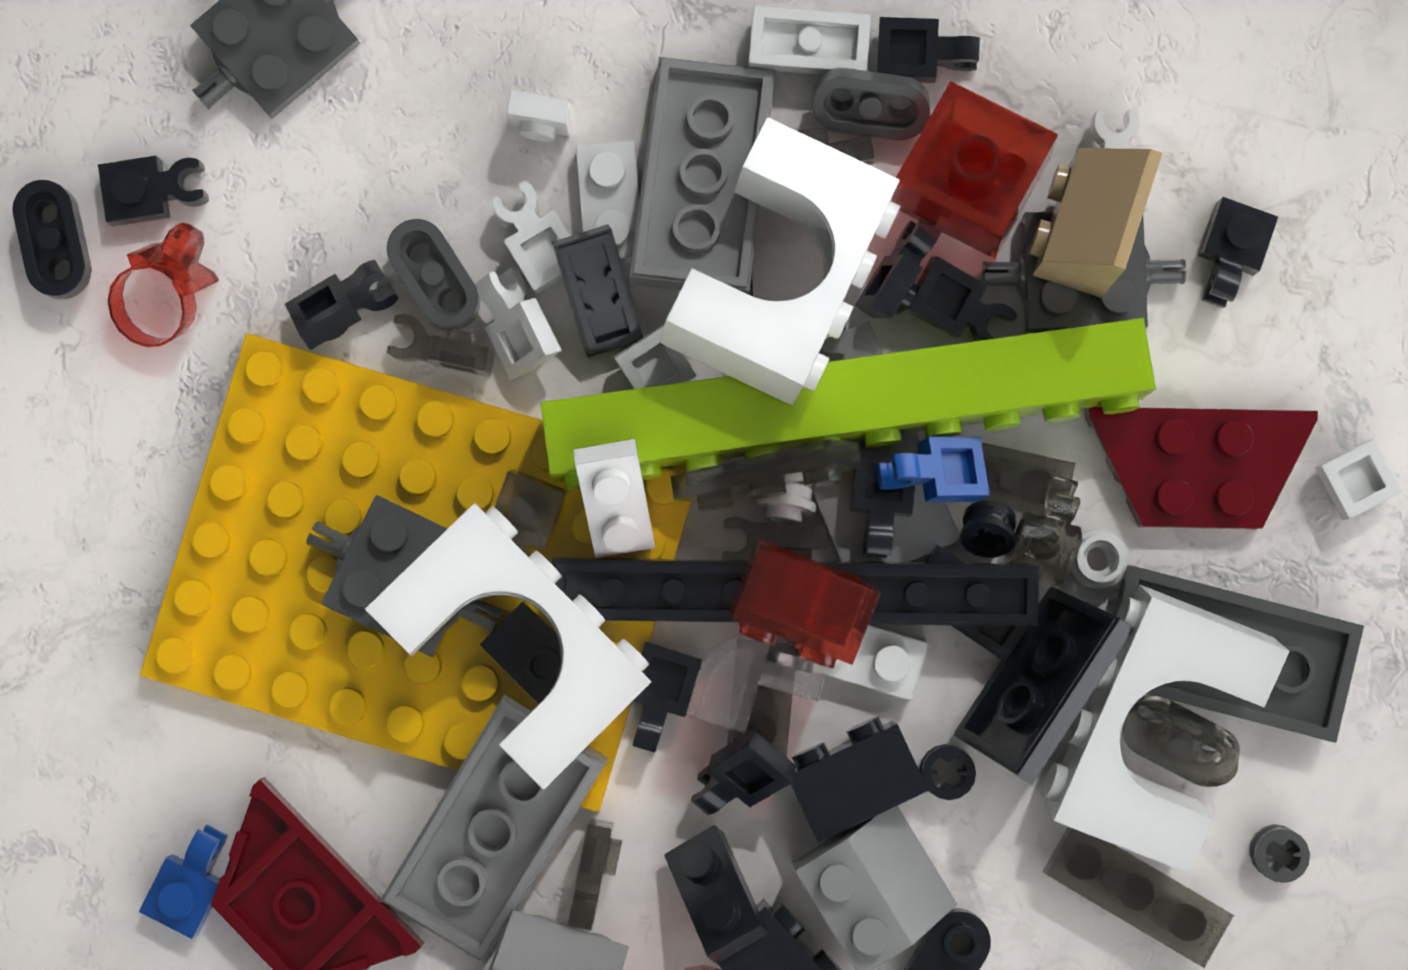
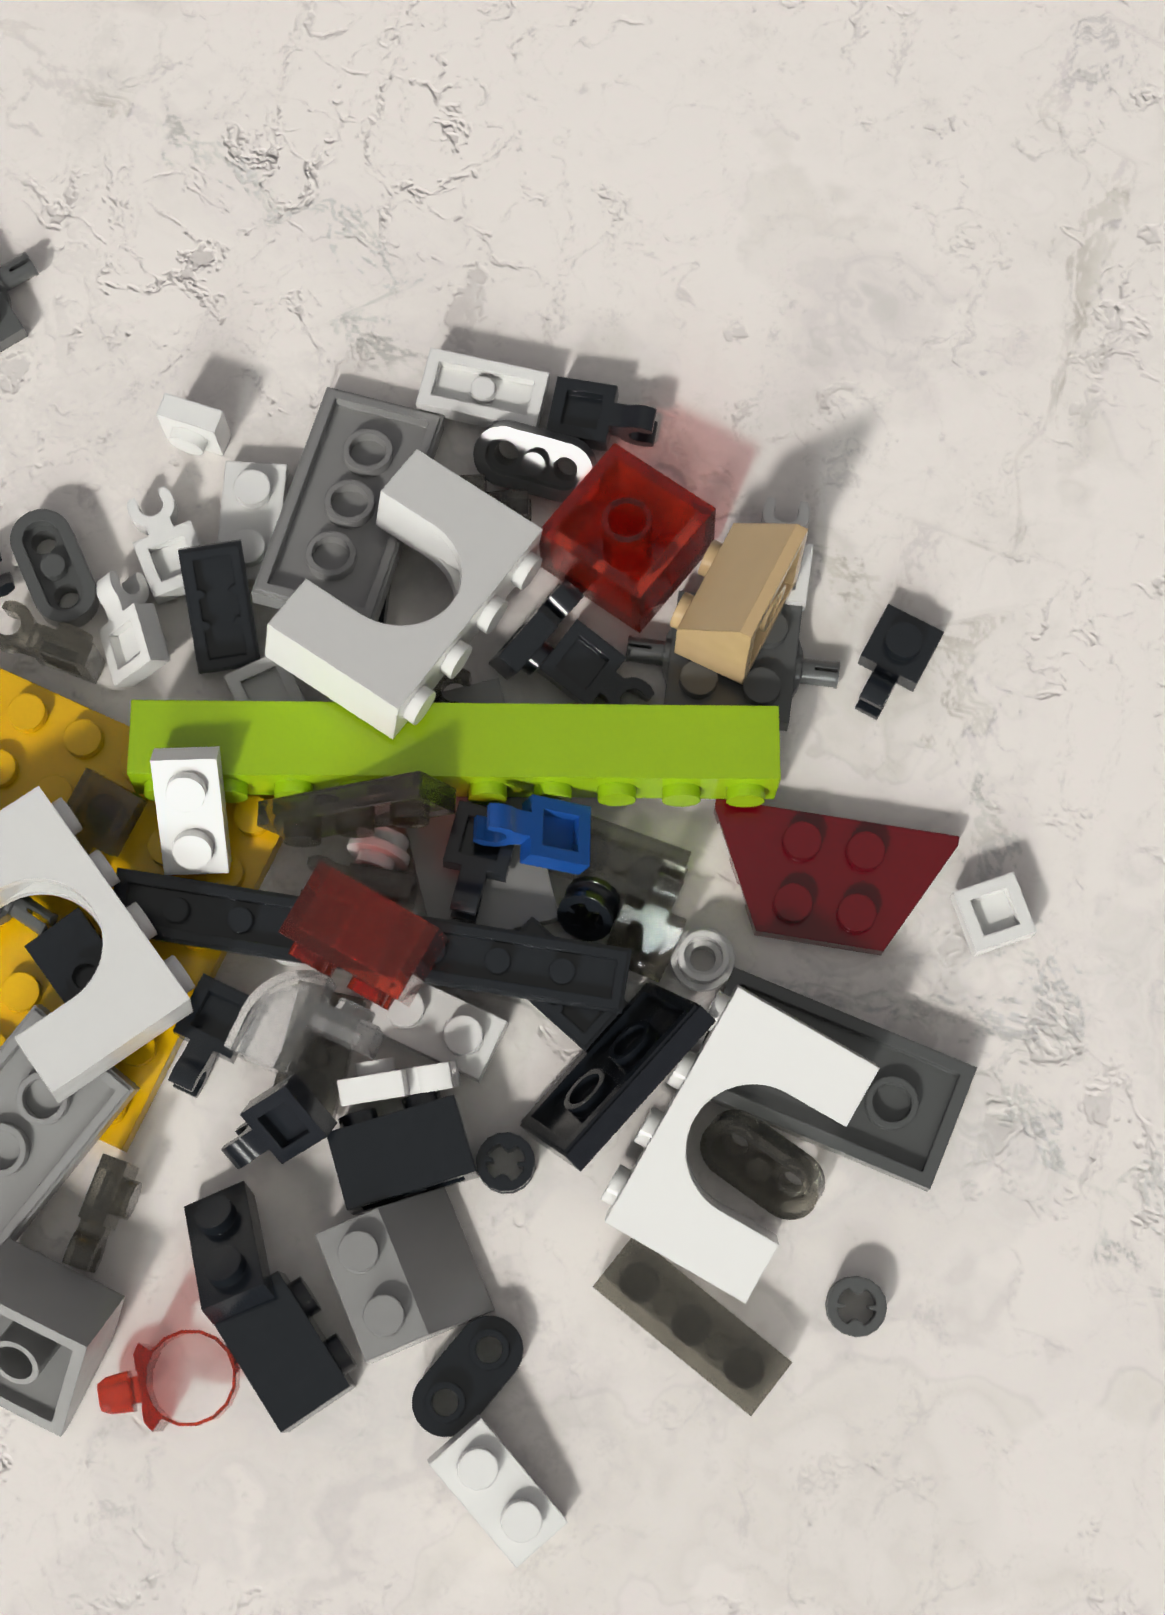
camera: 10 degrees right, 10 degrees down
(840, 717) = (382, 1081): none -> white plate

